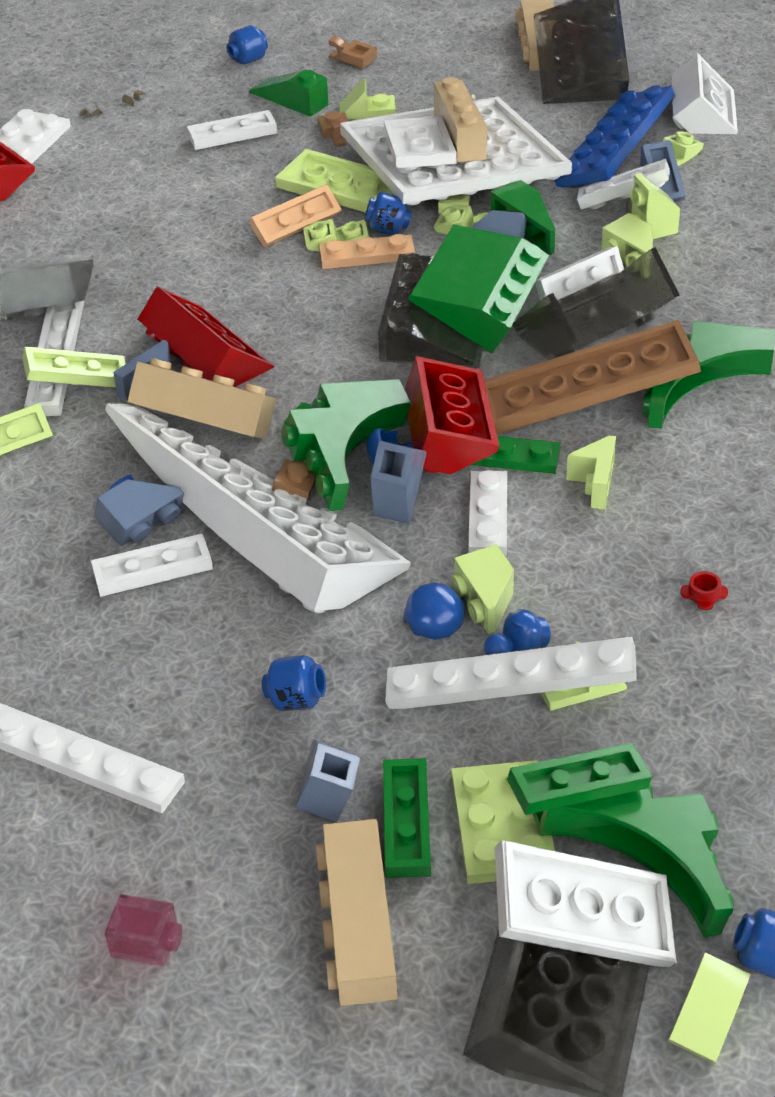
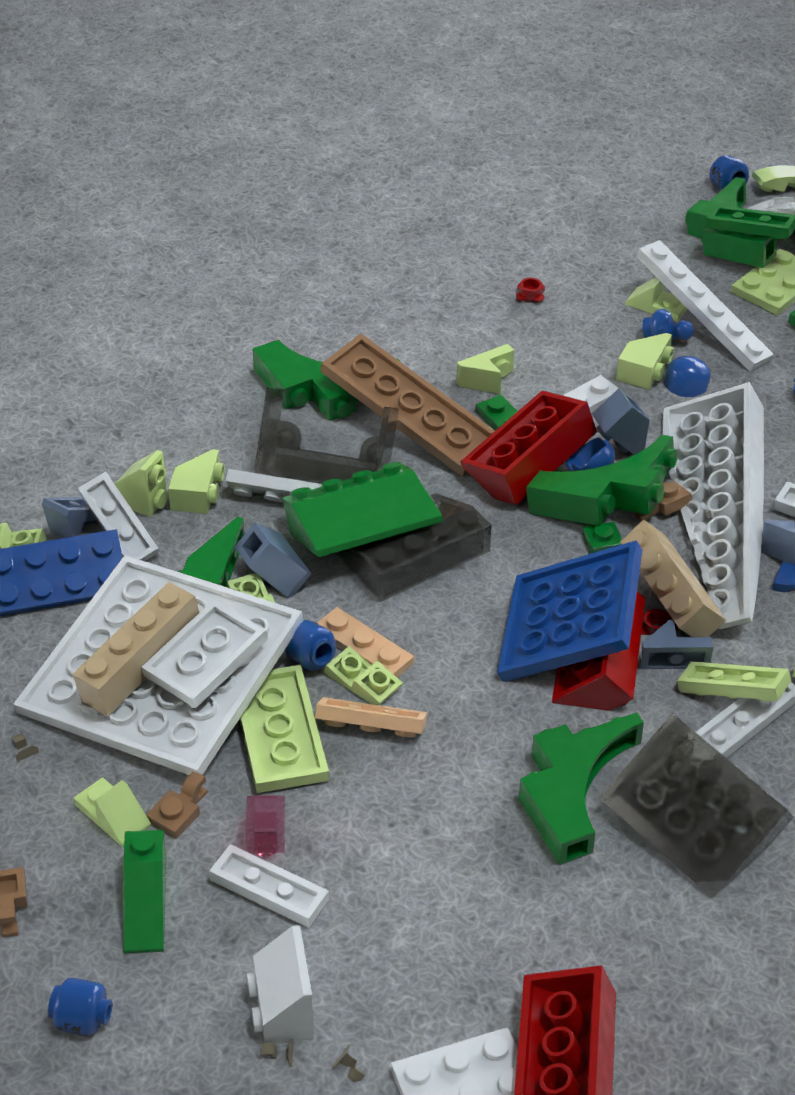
camera: 135 degrees left, 0 degrees up
(128, 257) = (567, 768): none -> green arch
(152, 95) = (282, 990): none -> white slope
(238, 317) = (571, 612): none -> blue plate
(272, 141) = (265, 825): none -> clear pink brick

